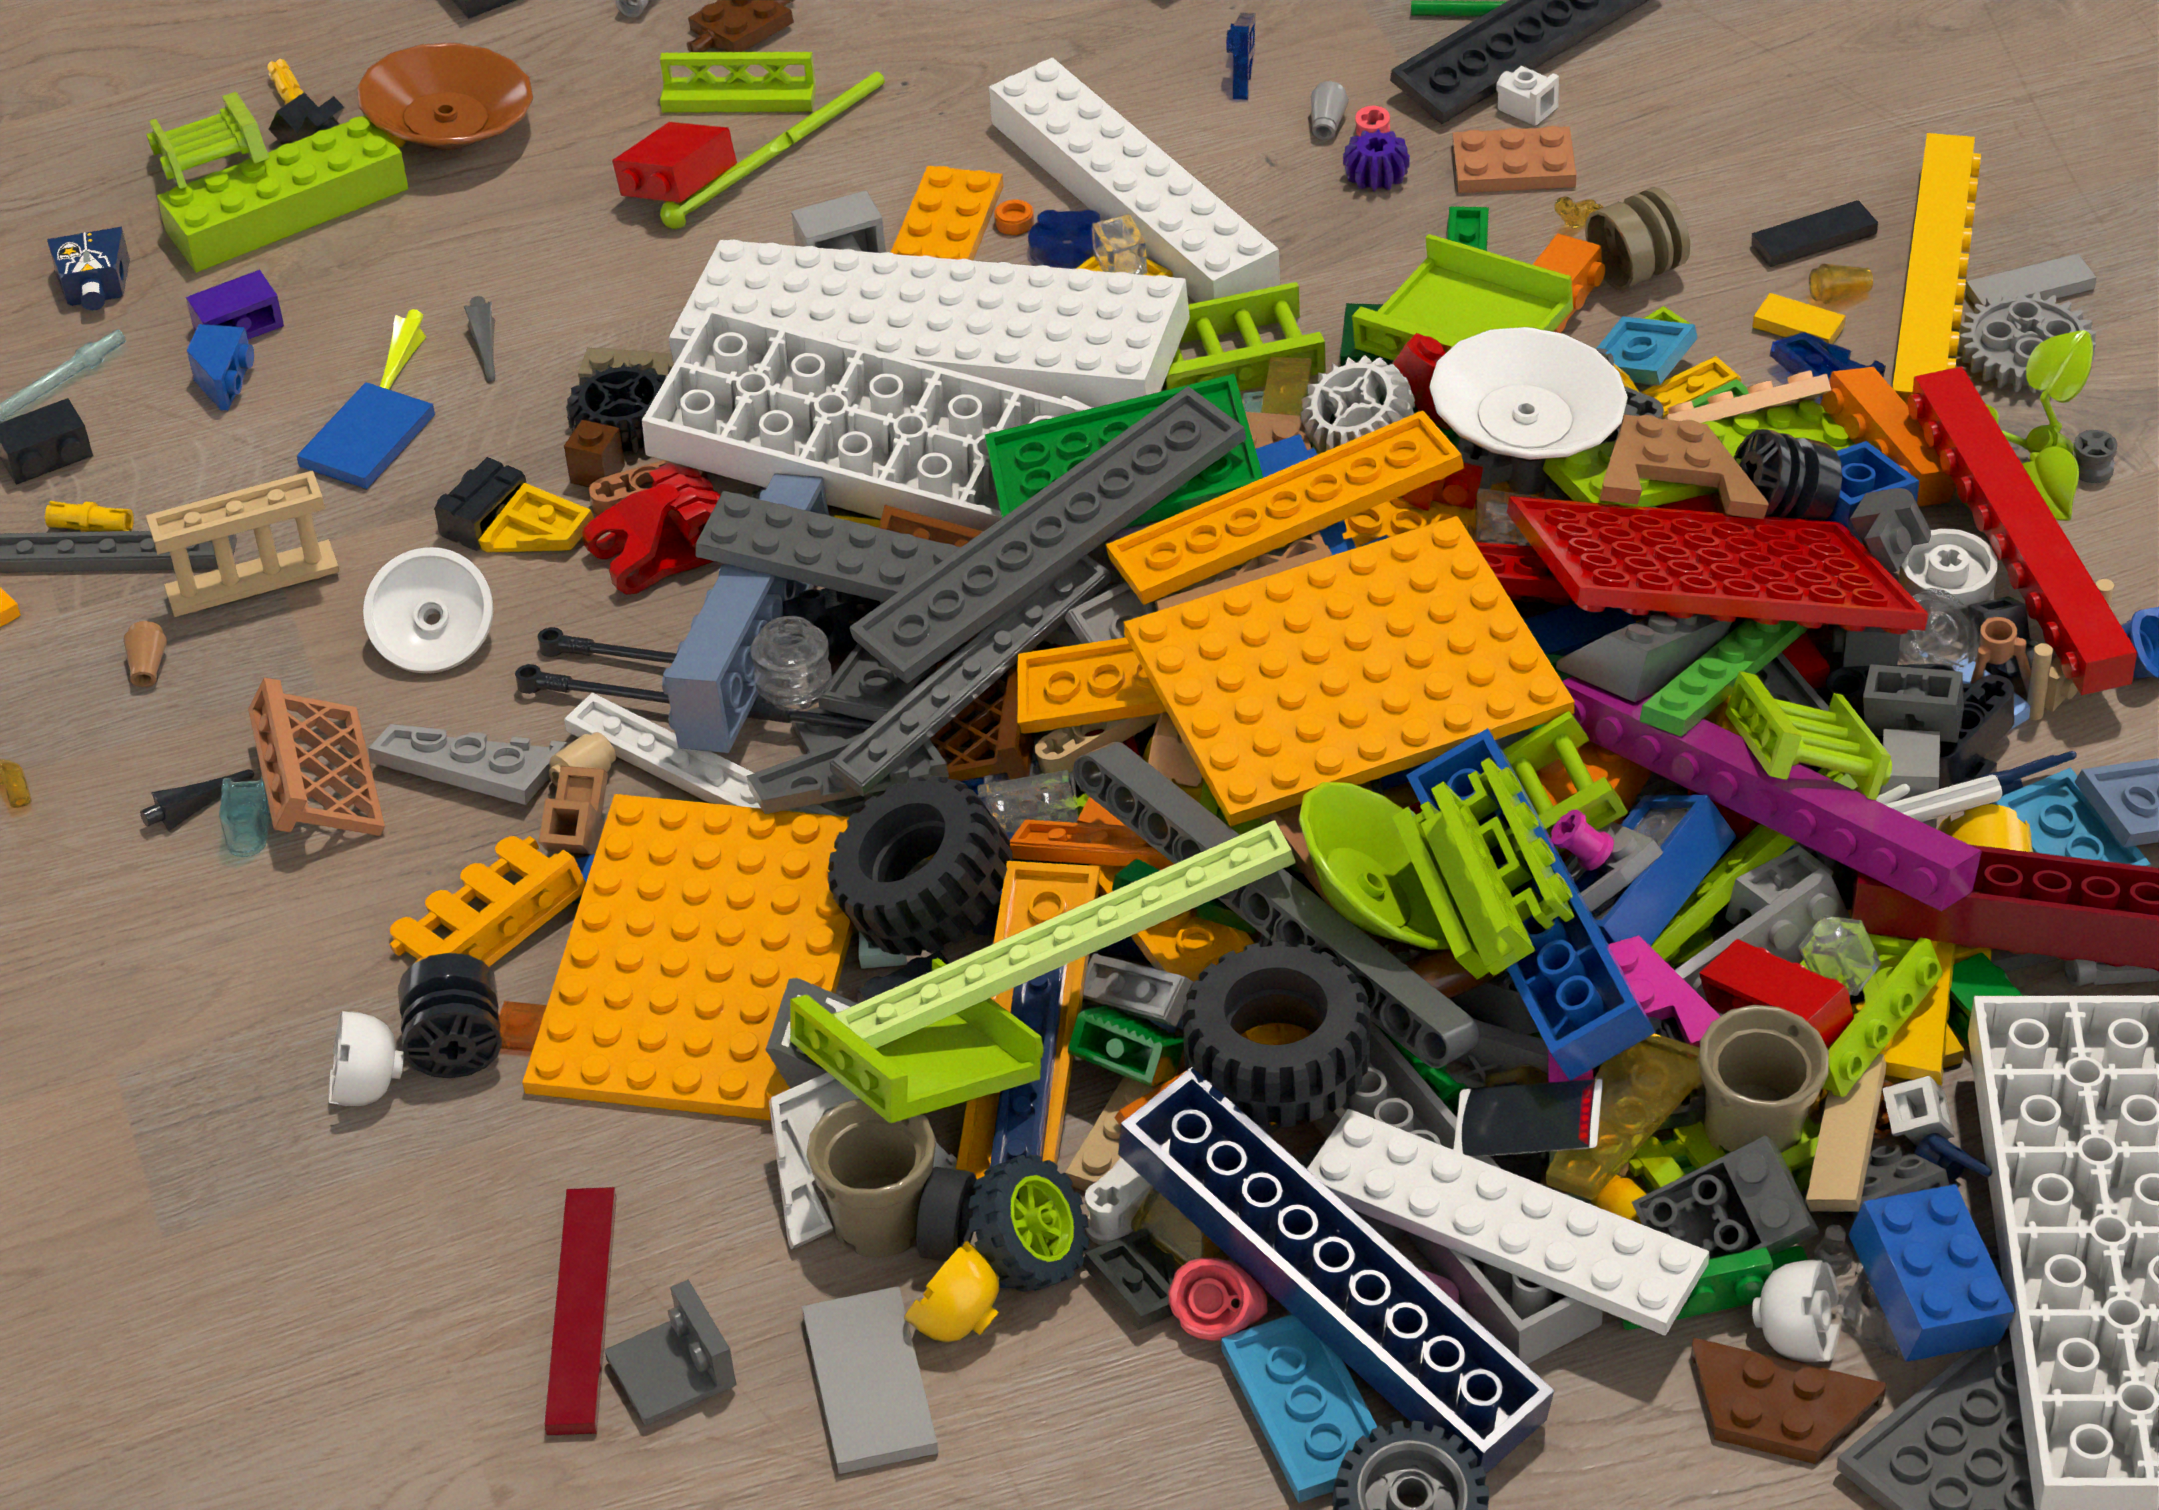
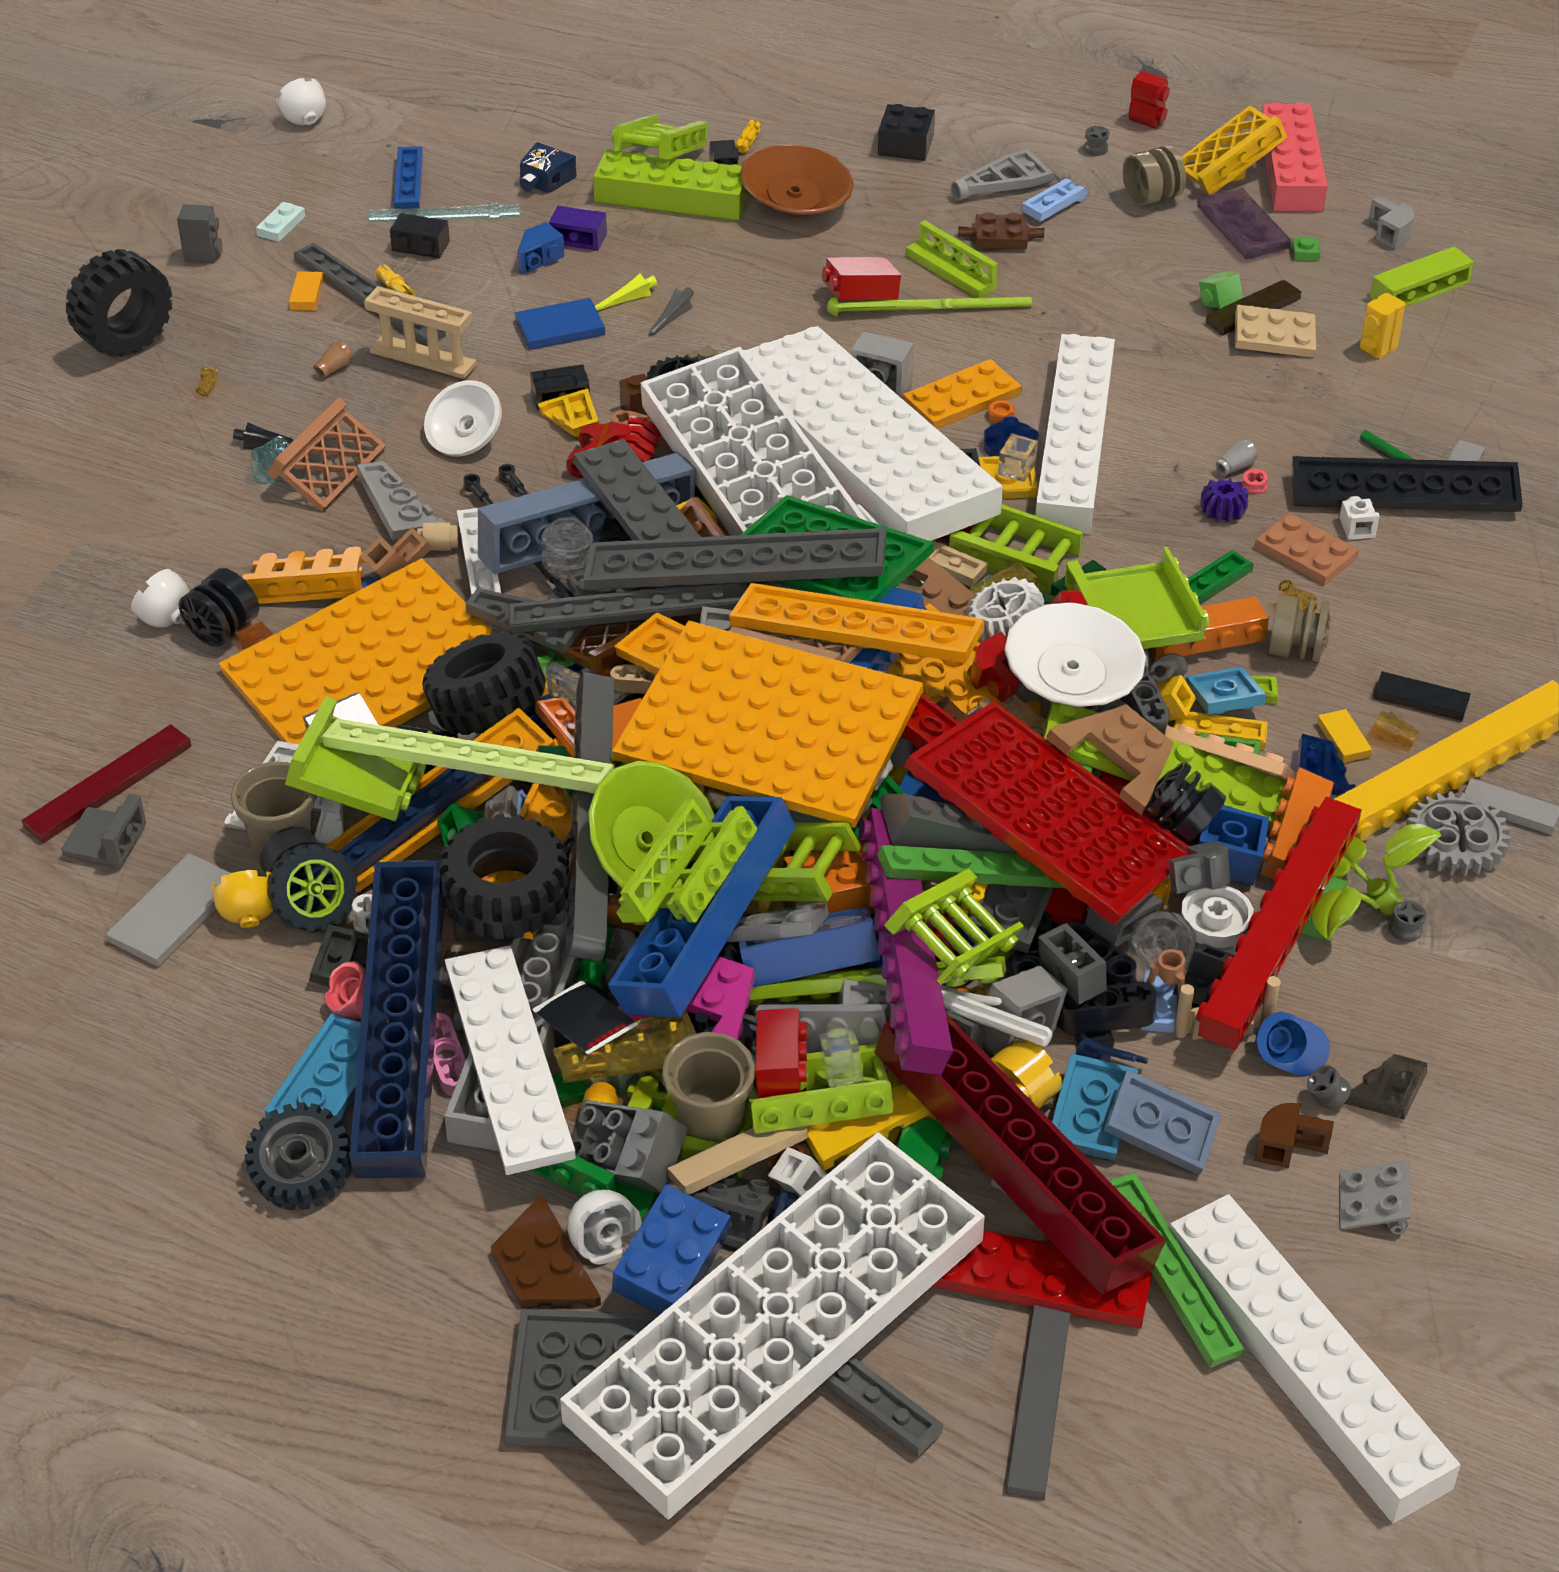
camera: 40 degrees right, 0 degrees up
(1241, 43) = (1229, 397): clear blue wing -> none
(1582, 840) = (780, 896): dark pink bush -> none

